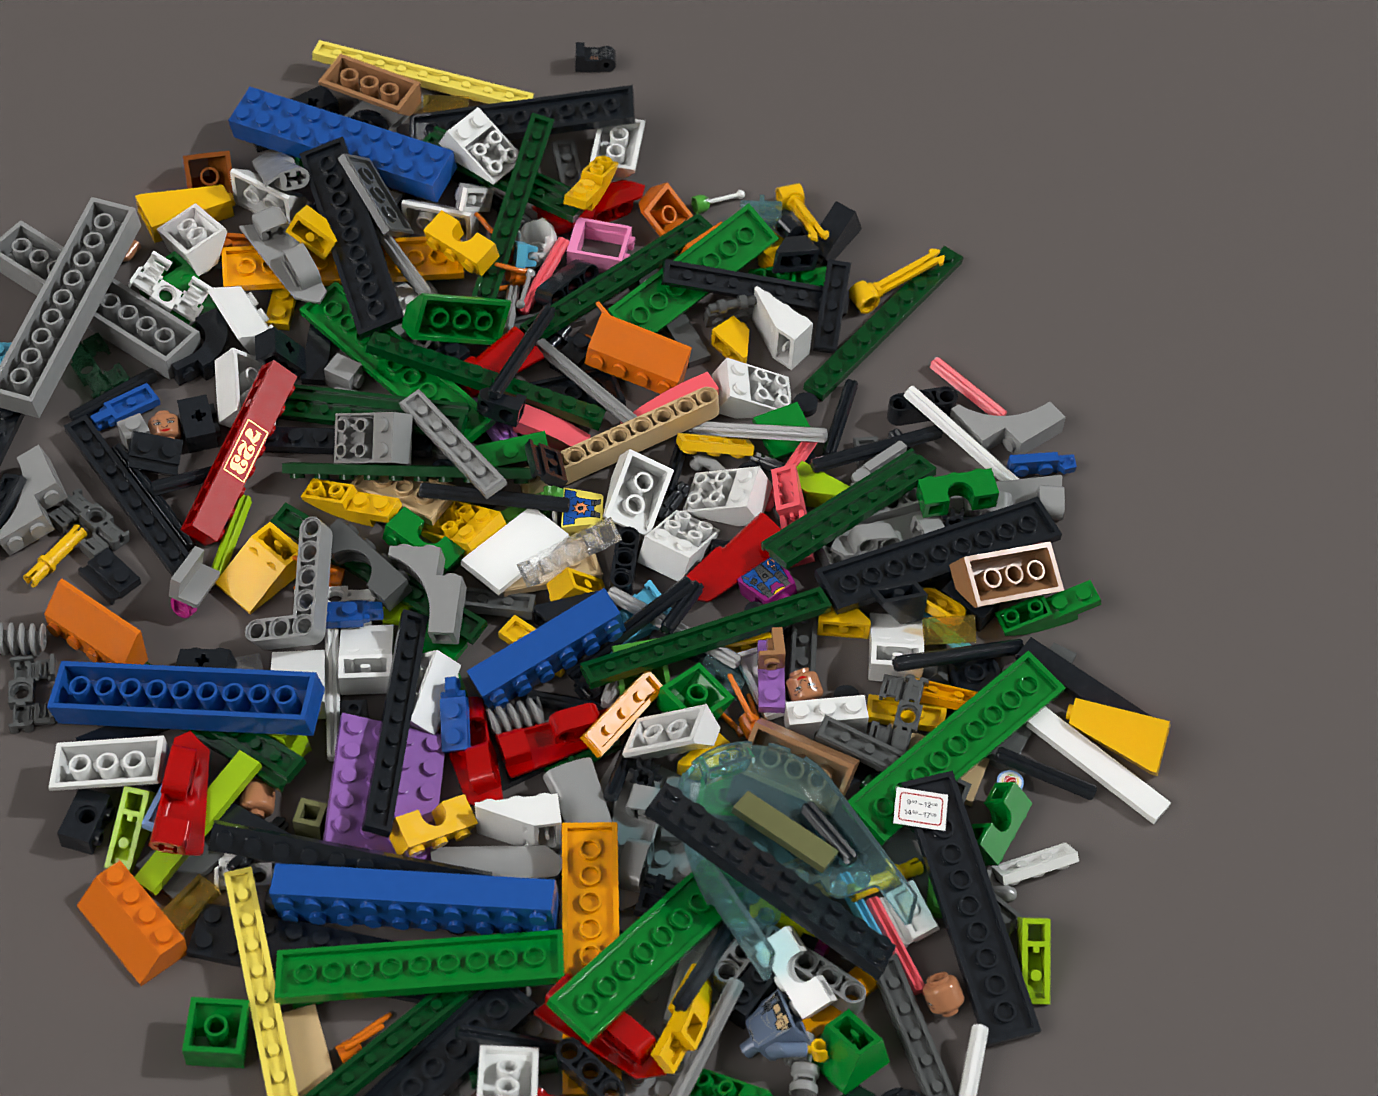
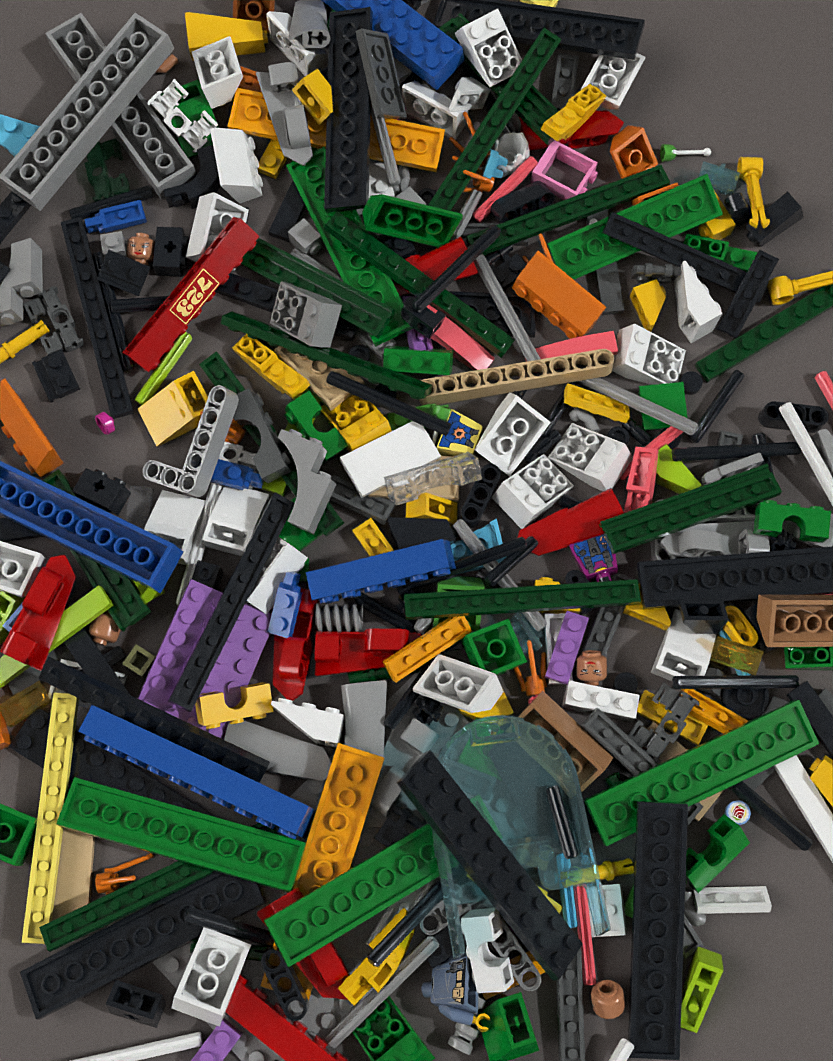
camera: 20 degrees right, 20 degrees up
(193, 579) = (116, 405): light grey panel -> none
(279, 347) = (255, 206): black brick -> none
(453, 444) = (367, 345): light grey tile -> none
(474, 255) = (449, 156): yellow arch -> none
(530, 273) = (493, 185): light grey hinge -> none
(546, 463) = (440, 387): black plate -> none
(775, 654) = (576, 627): medium nougat bracket -> none
(785, 831) = (523, 812): olive tile -> none
(795, 255) = (732, 236): black slope -> none
(920, 809) = (647, 831): white sticker -> none

